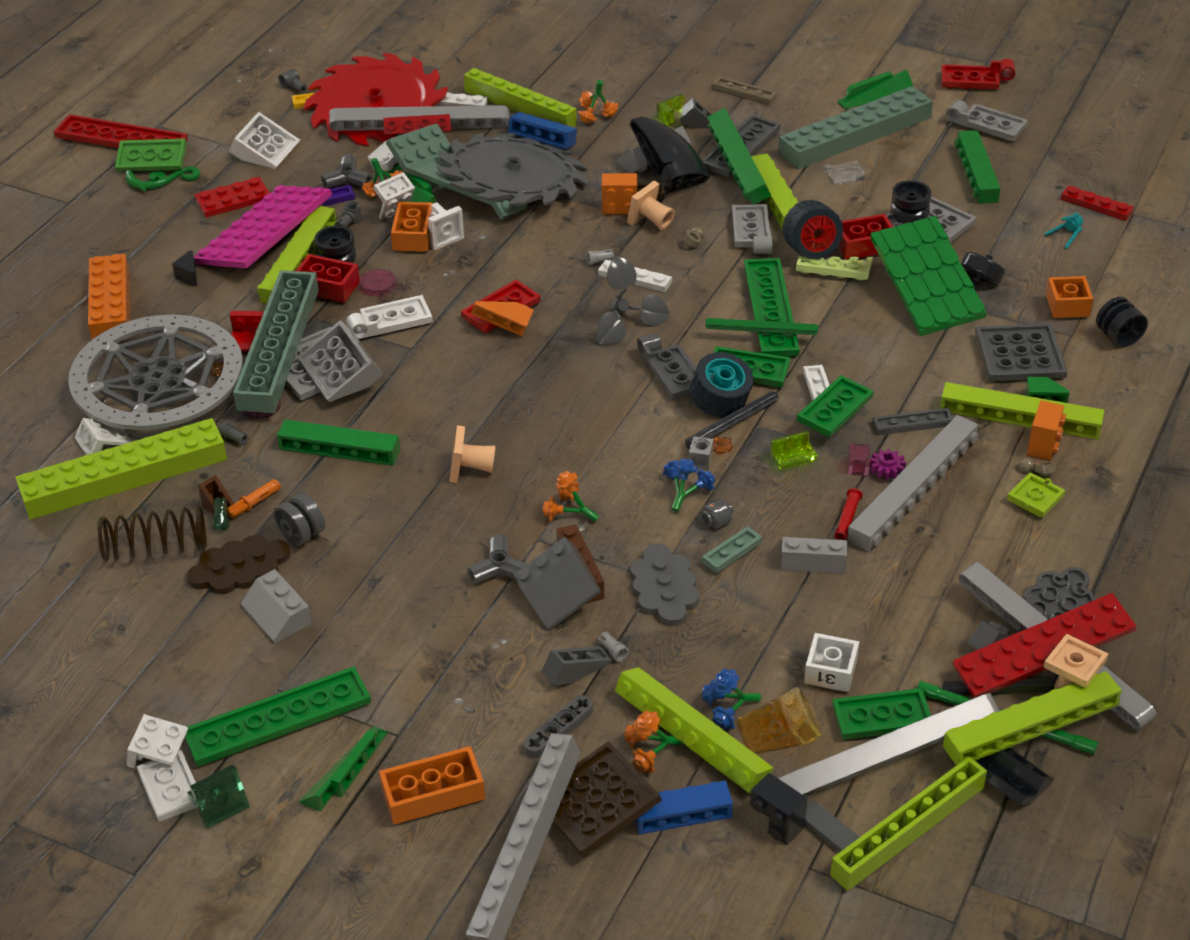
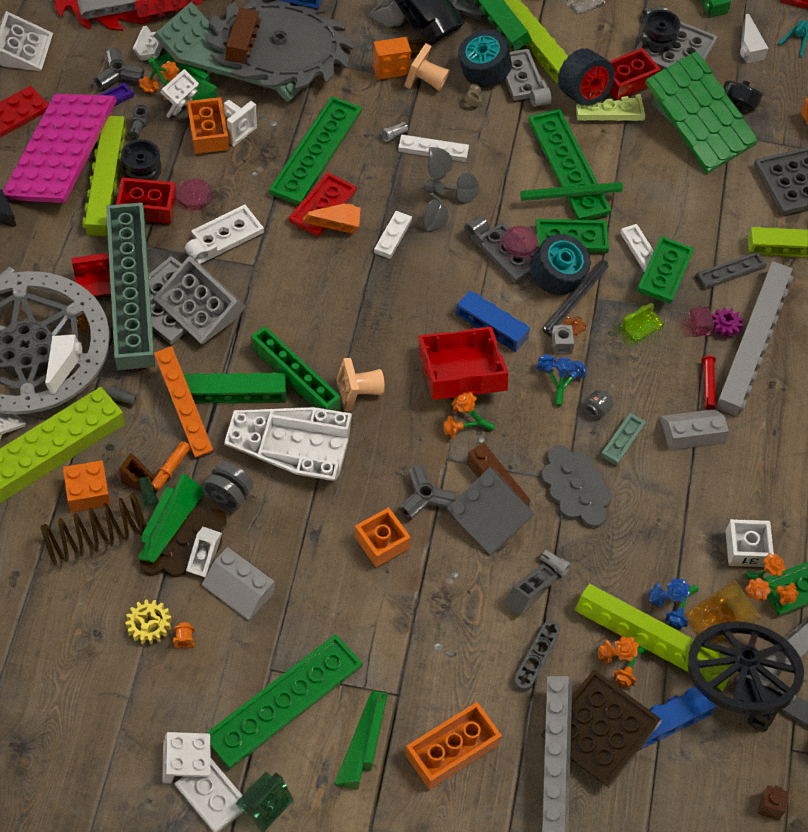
camera: 20 degrees left, 15 degrees up
(163, 494) = (86, 486): none -> orange brick
(172, 623) = (151, 625): none -> light yellow gear
(181, 386) = (62, 359): none -> white slope
(200, 643) = (183, 635): none -> orange brick
(231, 536) = (169, 516): none -> green wedge
(252, 565) = (203, 551): none -> white slope
(287, 444) = (183, 402): none -> orange plate
(385, 493) = (294, 439): none -> white wedge
(411, 438) = (297, 372): none -> green brick
(437, 590) = (382, 537): none -> orange brick
(473, 154) = (243, 35): none -> reddish brown brick
(513, 261) = (315, 150): none -> green plate
(562, 341) = (393, 234): none -> white plate
(588, 451) = (462, 363): none -> red tile
(633, 426) = (485, 314): none -> blue brick
(686, 360) = (520, 241): none -> clear pink tile
(714, 204) = (485, 58): none -> black wheel
(764, 908) = (773, 802): none -> reddish brown brick
(774, 756) = (746, 661): none -> black wheel
(819, 698) = (759, 587): none -> orange plant
(1012, 228) = (752, 44): none -> white slope

